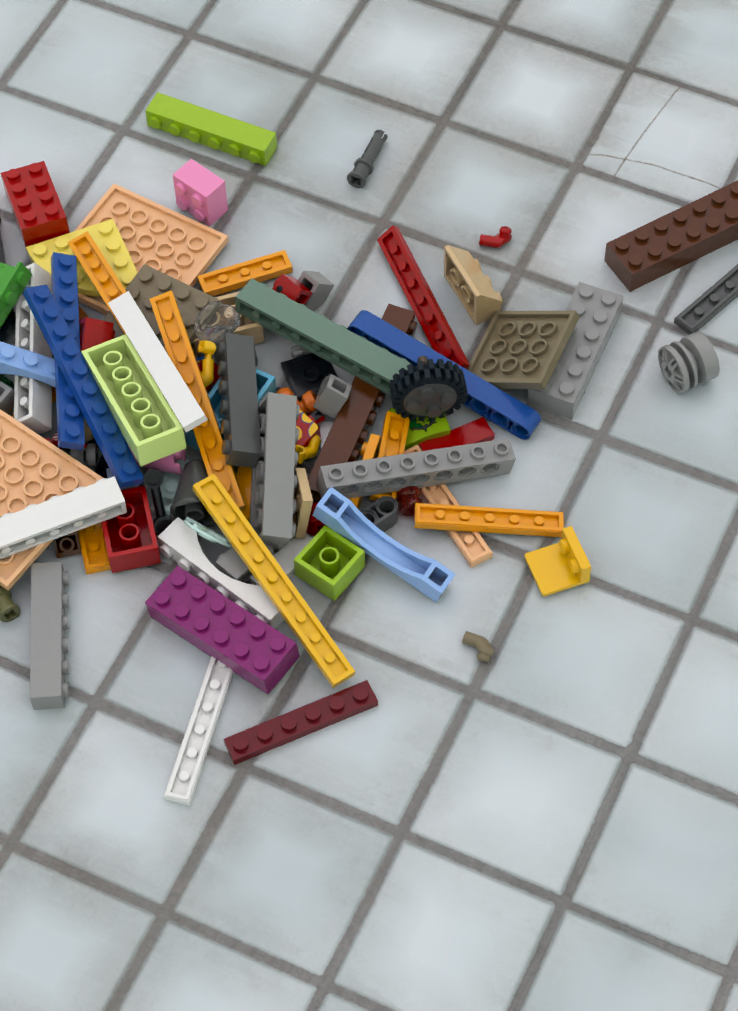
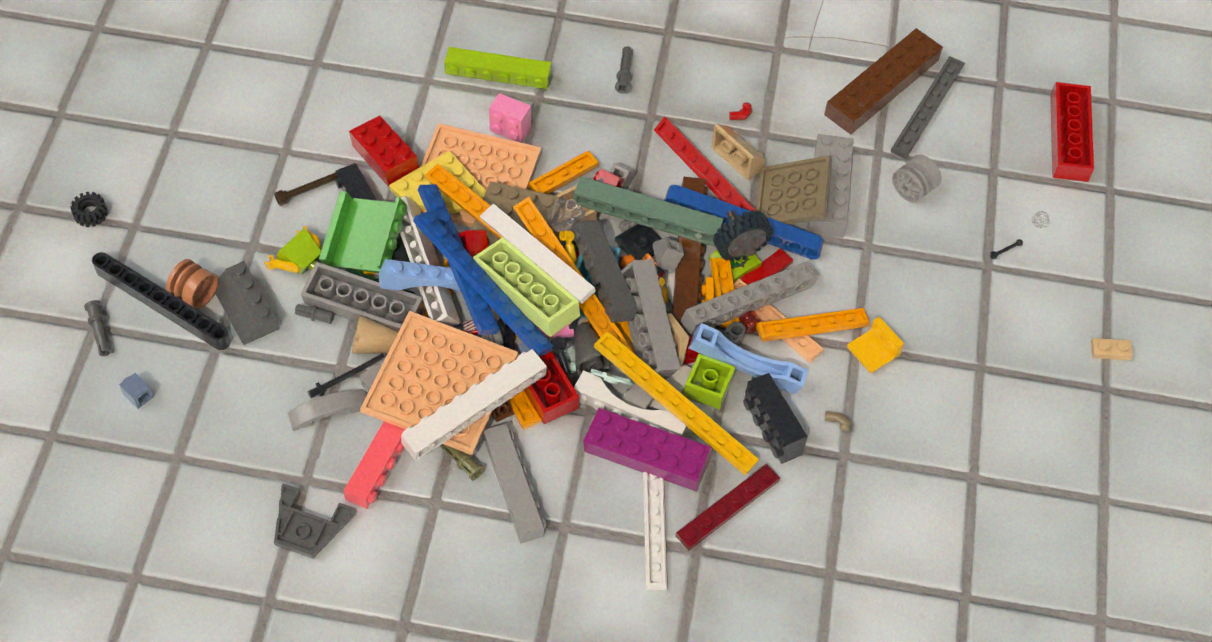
camera: 20 degrees left, 0 degrees up
(392, 625) = (774, 418): none -> black brick

